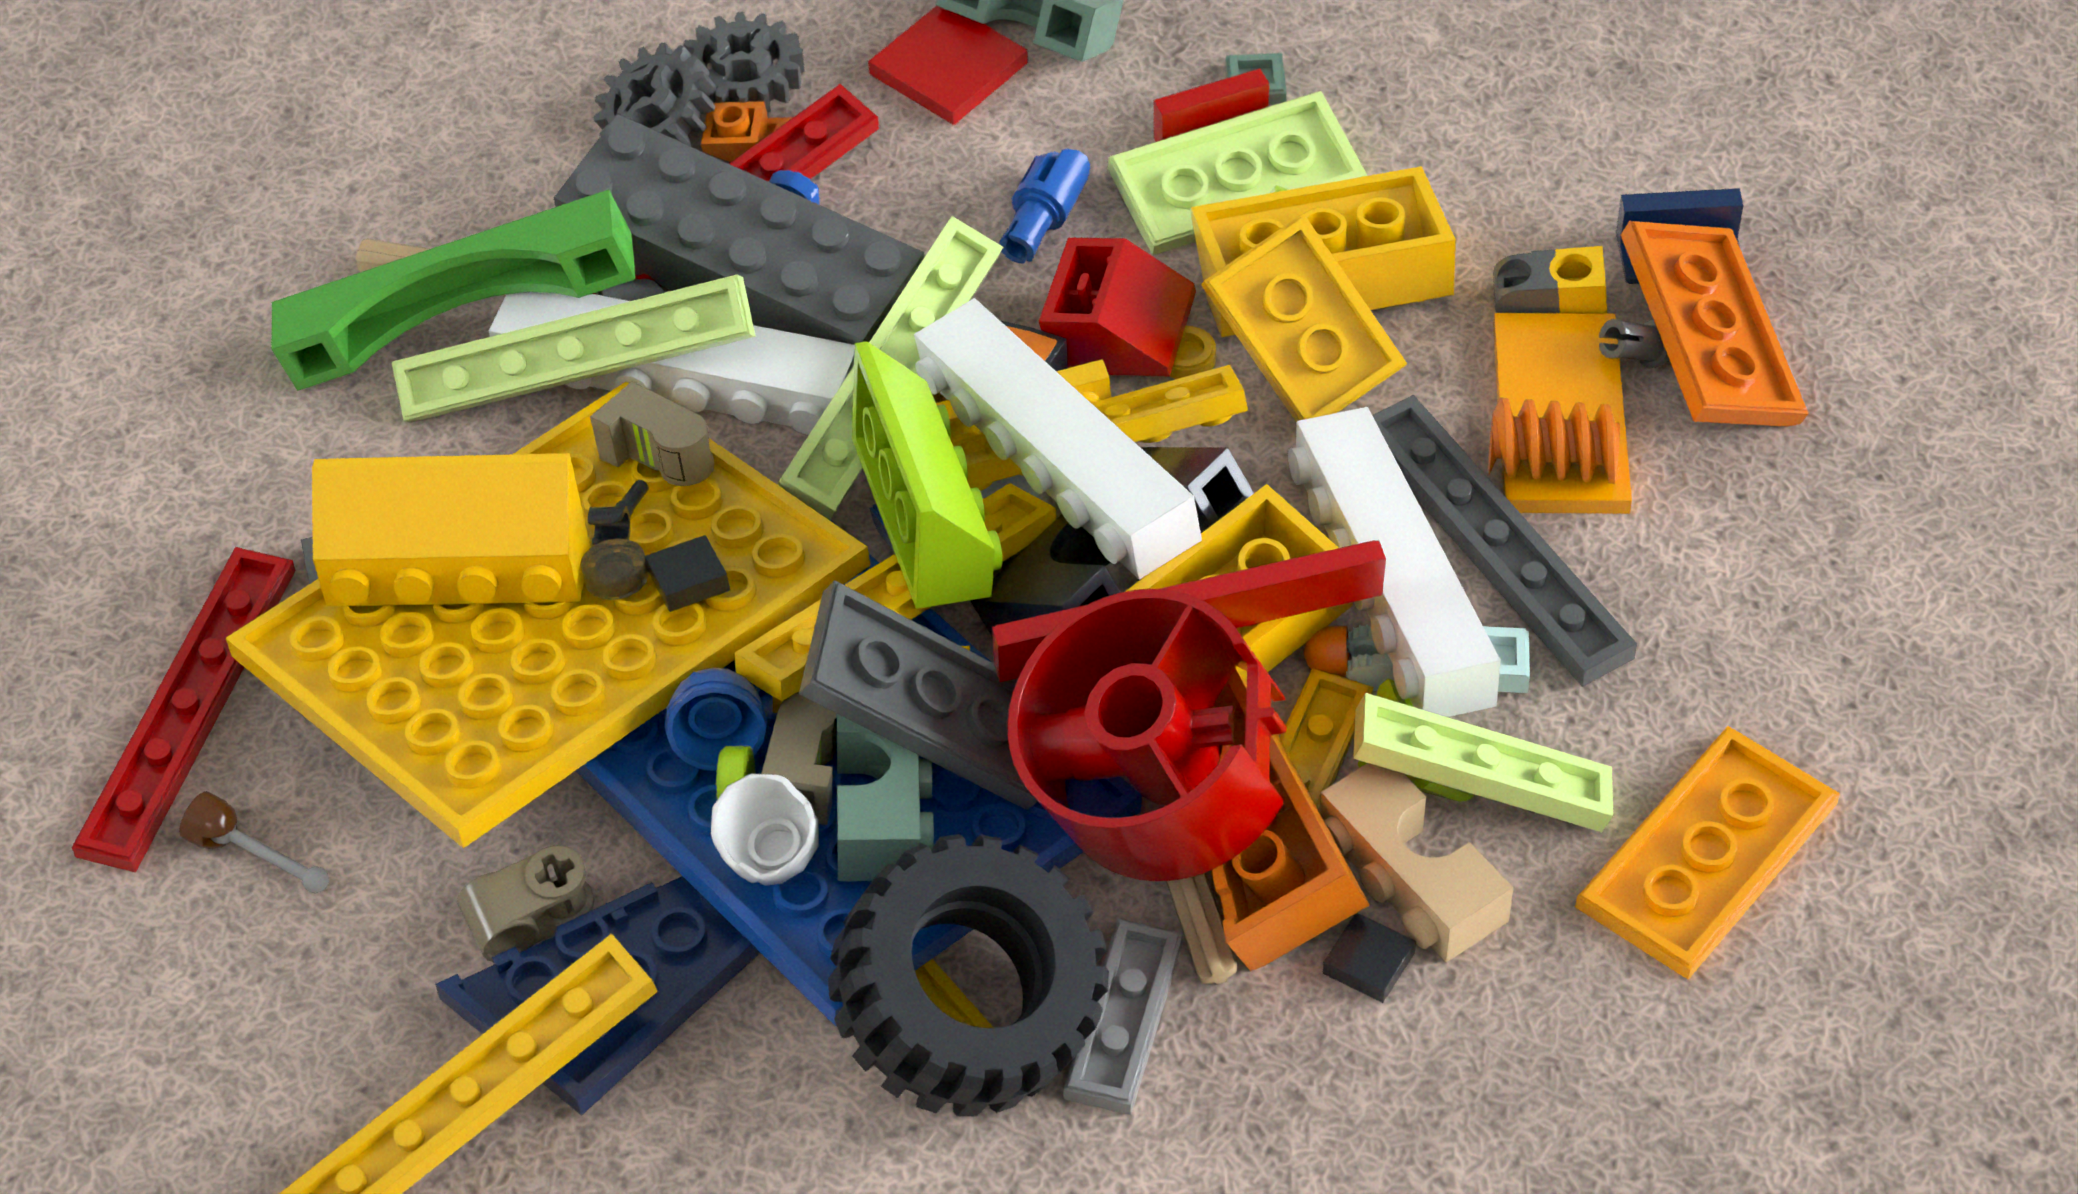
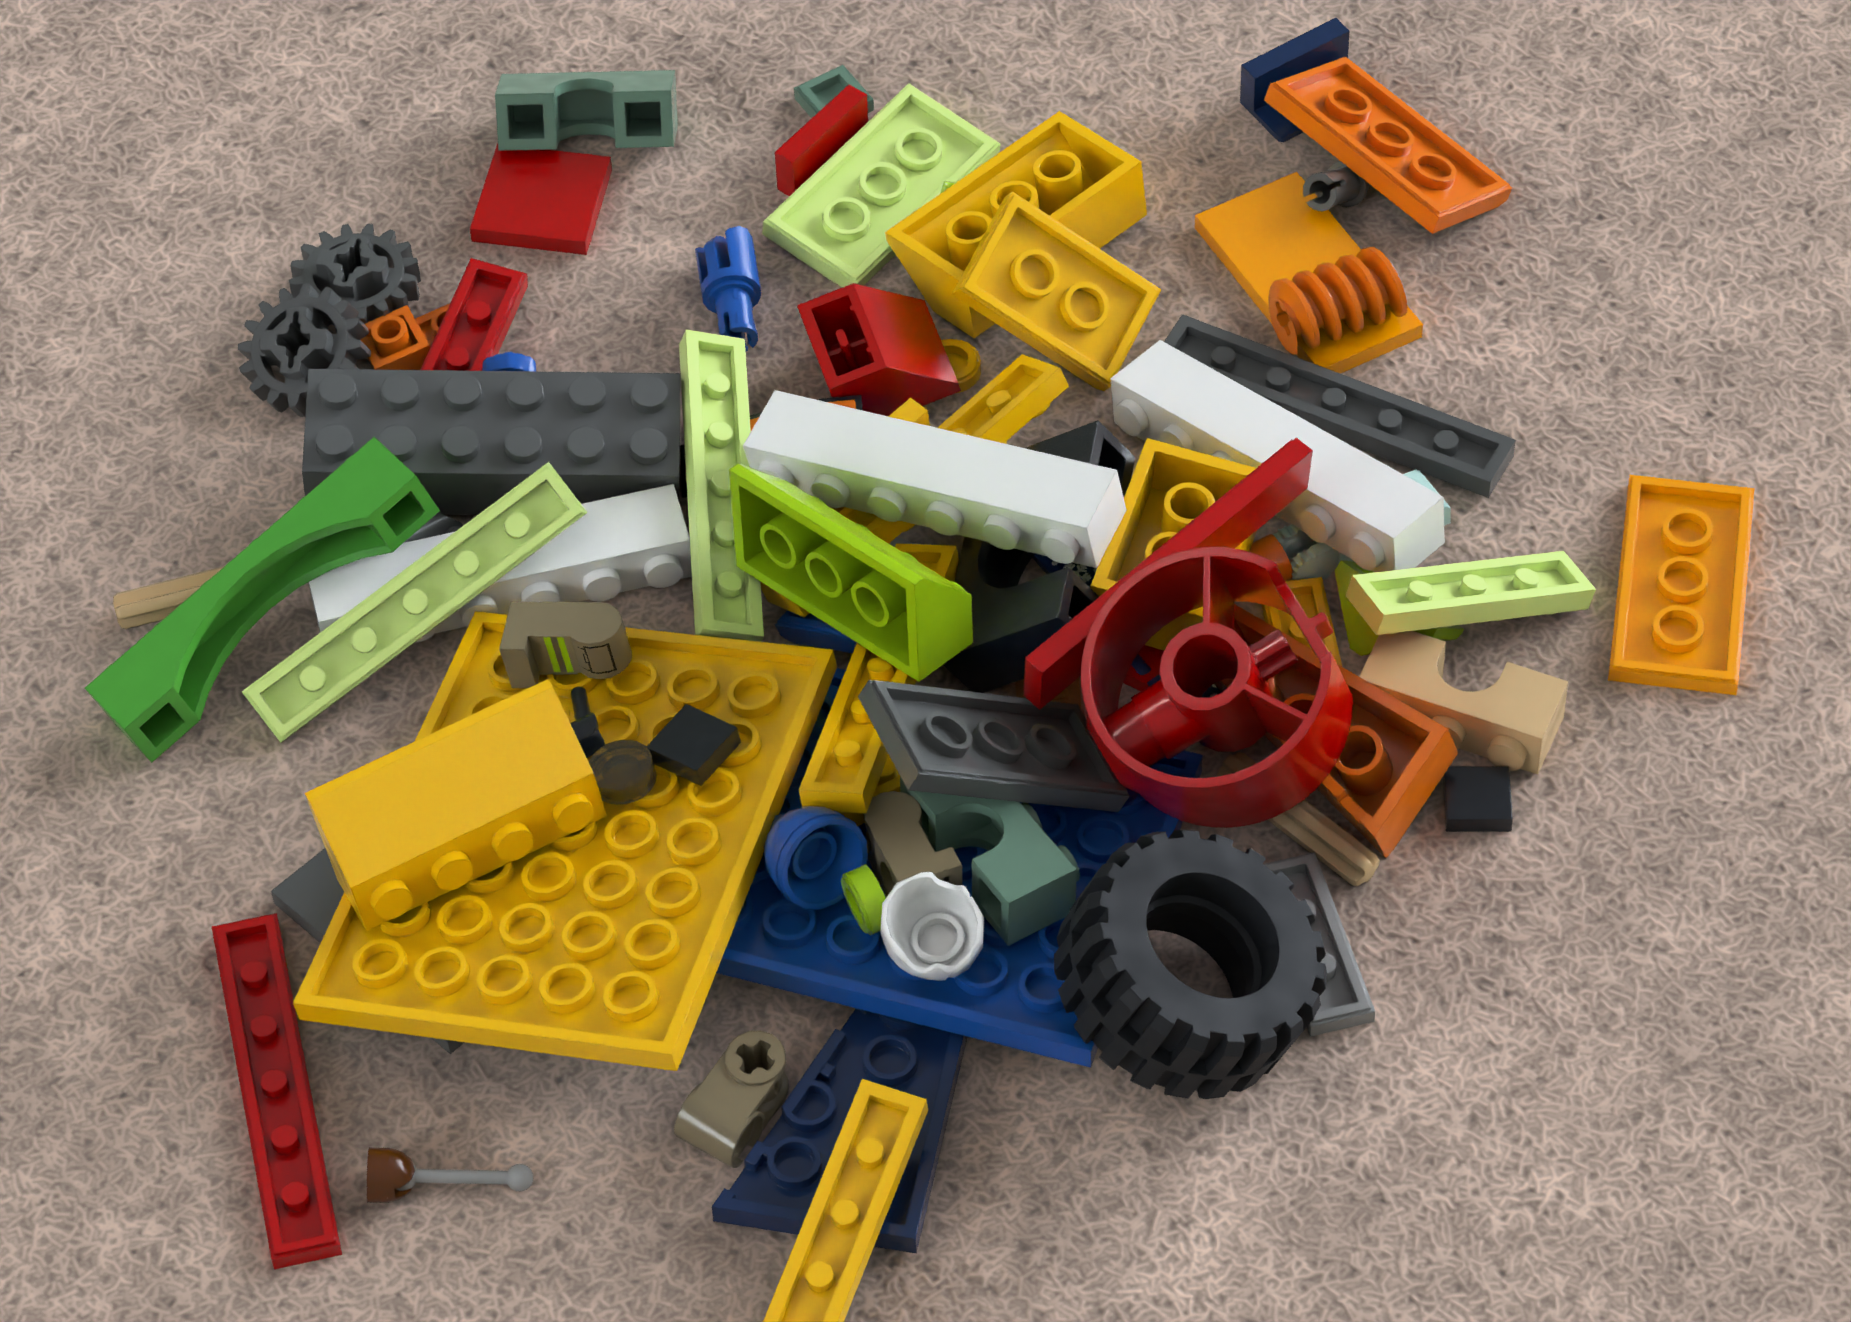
camera: 30 degrees left, 0 degrees up
(1551, 282) = (1229, 166): leg -> none

